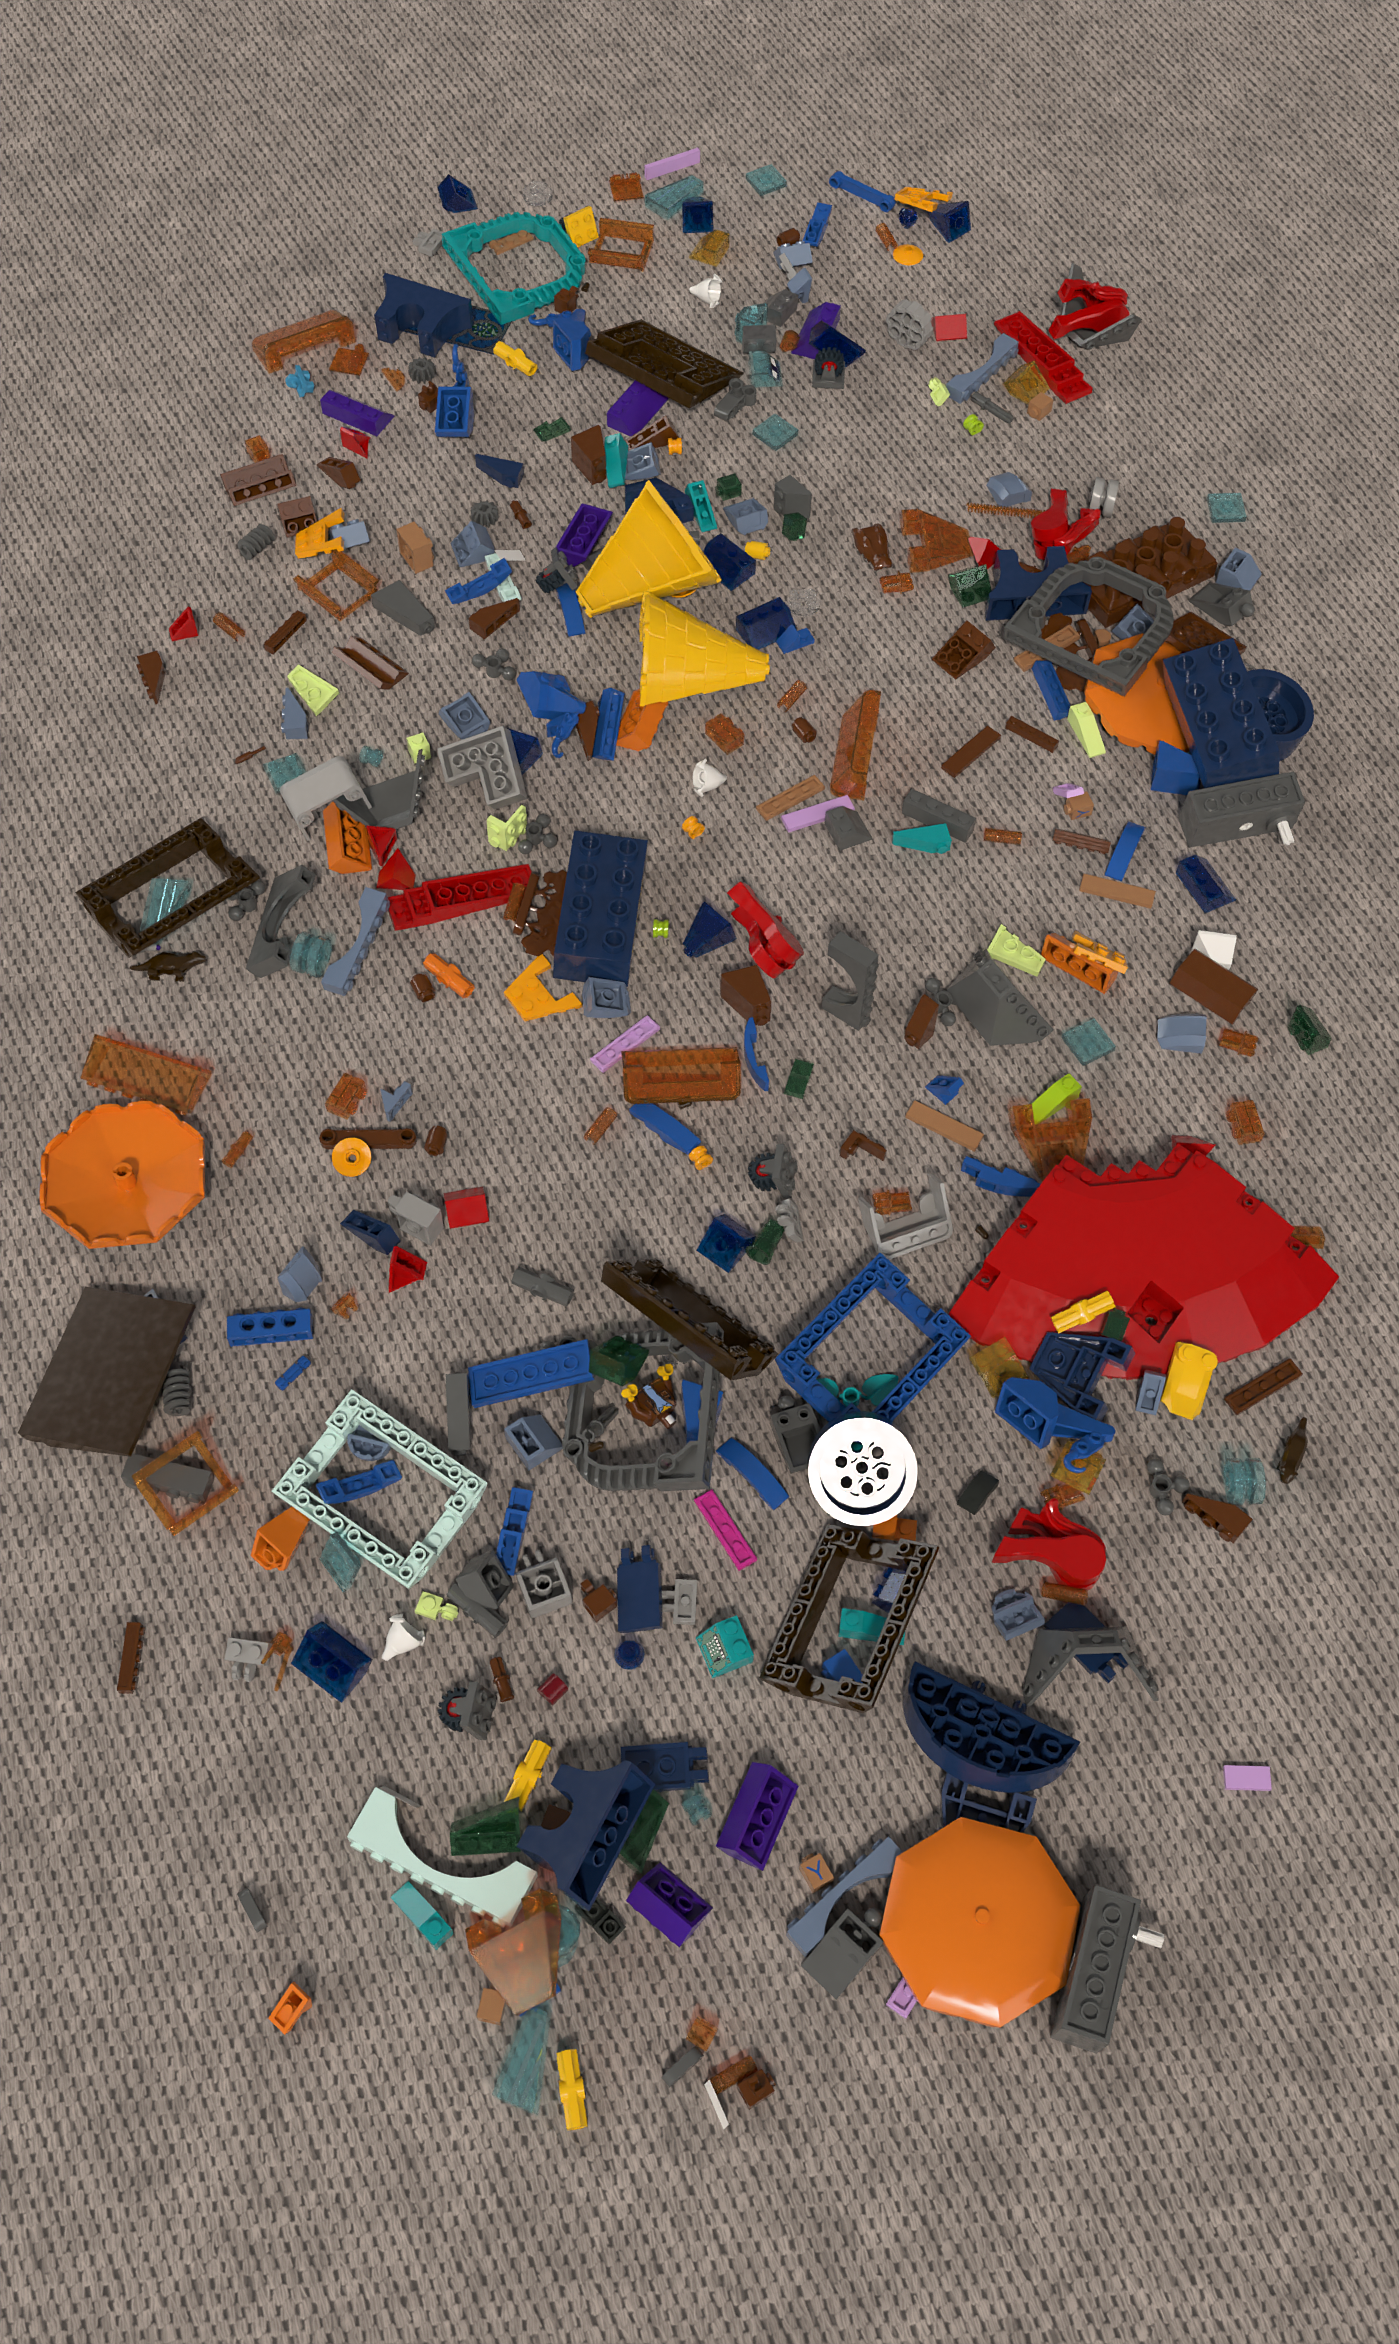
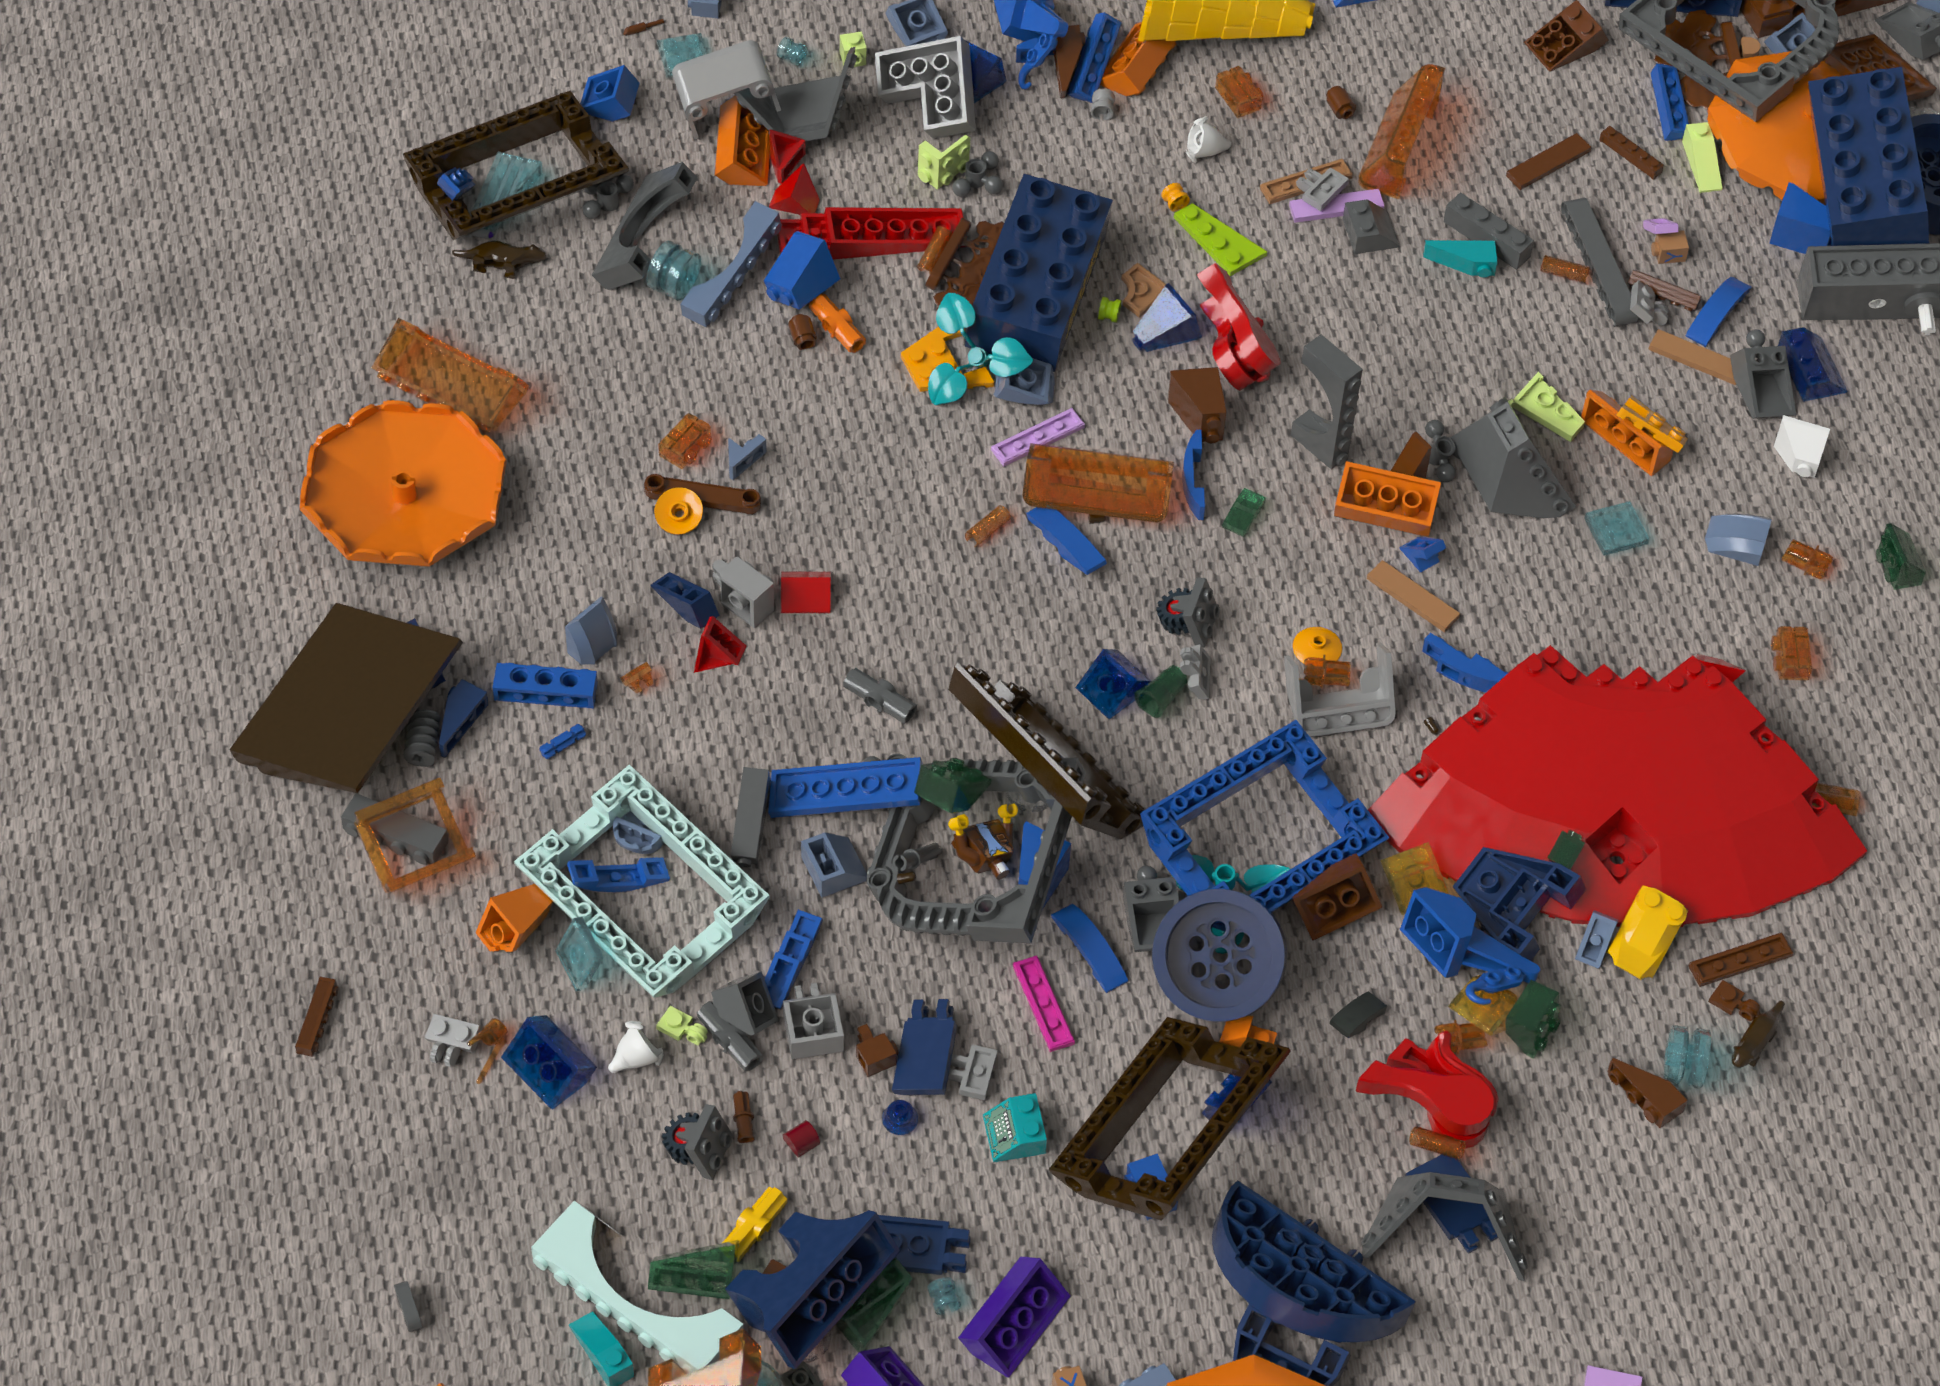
camera: 10 degrees right, 5 degrees down
(122, 910) = (456, 183): none -> blue slope
(205, 1360) = (462, 709): none -> dark blue slope
(233, 815) = (610, 94): none -> blue slope
(237, 1149) = (543, 480): clear orange axle -> none
(412, 939) = (801, 271): none -> blue slope
(436, 1140) = (784, 509): reddish brown brick -> none
(590, 985) = (1008, 356): none -> teal plant
(621, 760) = (1103, 104): none -> light grey wheel
(683, 907) = (1142, 289): none -> medium nougat tile
(700, 1157) = (1102, 581): light orange wheel -> none
(734, 857) = (1220, 241): none -> lime wing
(788, 695) = (1336, 53): clear orange piece -> none
(804, 802) = (1321, 188): none -> light grey hinge
(860, 1140) = (1300, 593): reddish brown bracket -> none
(861, 1625) = (1178, 1132): teal slope -> none
(871, 1185) = (1305, 646): none -> light orange dish
(909, 1050) = (1387, 499): none -> orange slope
(941, 1396) = (1337, 897): none -> reddish brown slope
(1015, 1614) = (1373, 1155): sand blue slope -> none
(1026, 822) = (1600, 259): none -> dark grey beam
(1051, 1142) = (1534, 631): clear orange wedge -> none
(1055, 1098) = (1556, 587): lime slope -> none
(1061, 639) = (1695, 42): medium nougat tile -> none
(1070, 856) = (1645, 306): none -> light grey hinge
(1083, 1311) = (1530, 828): yellow piece -> none
(1118, 1471) = (1534, 1018): none -> clear green slope
(1173, 900) = (1764, 381): none -> dark grey slope
(1179, 1484) = (1609, 1048): dark grey piece -> none
(1213, 986) = (1790, 487): reddish brown slope -> none
(1262, 1422) = (1729, 998): none -> reddish brown plate

